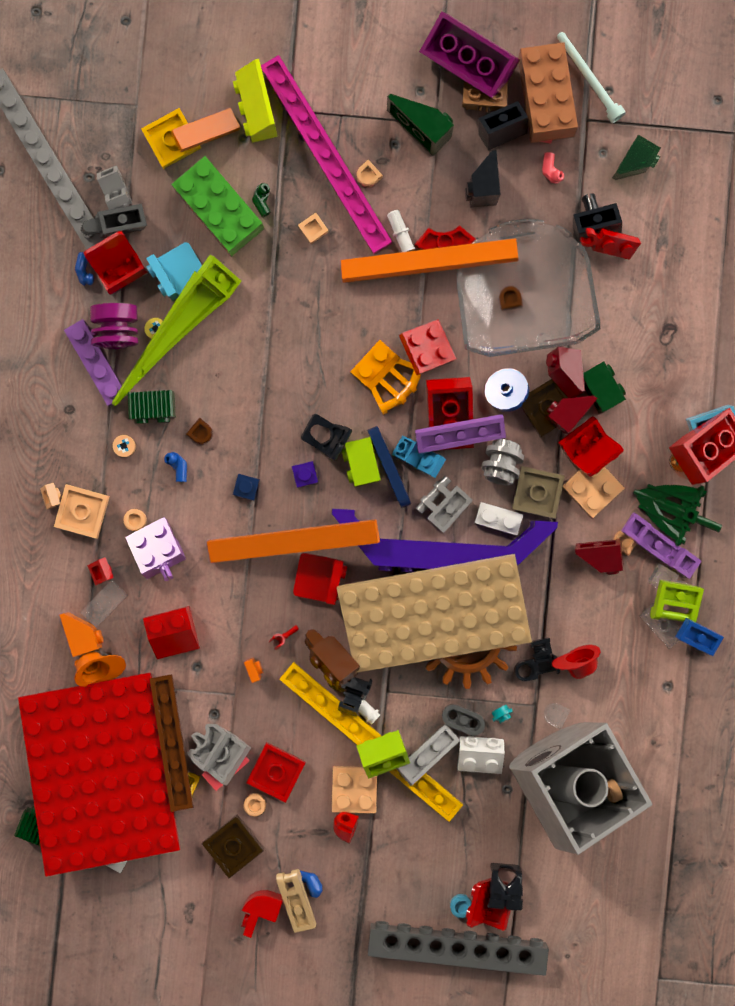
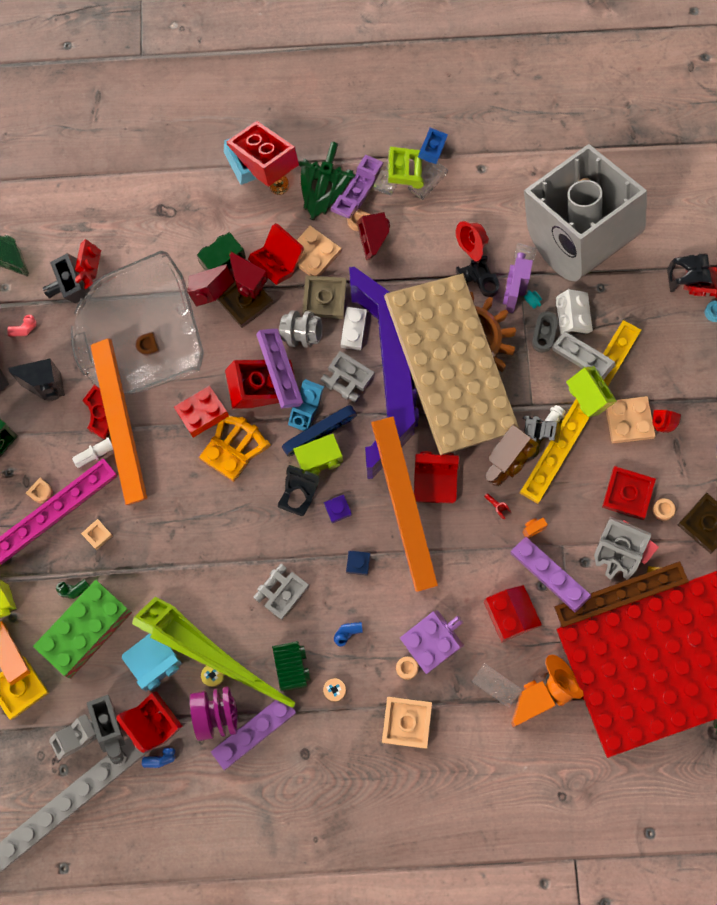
camera: 95 degrees left, 15 degrees down
(50, 495) = (396, 756): light nougat plate -> none
(100, 571) = (464, 693): red plate -> none
(200, 432) = (310, 615): reddish brown tile -> none
(203, 676) = (550, 574): none -> medium lavender plate
(222, 411) = (286, 595): none -> light grey plate
(507, 400) = (243, 335): plate -> none
(522, 702) = (517, 281): none -> medium lavender plate

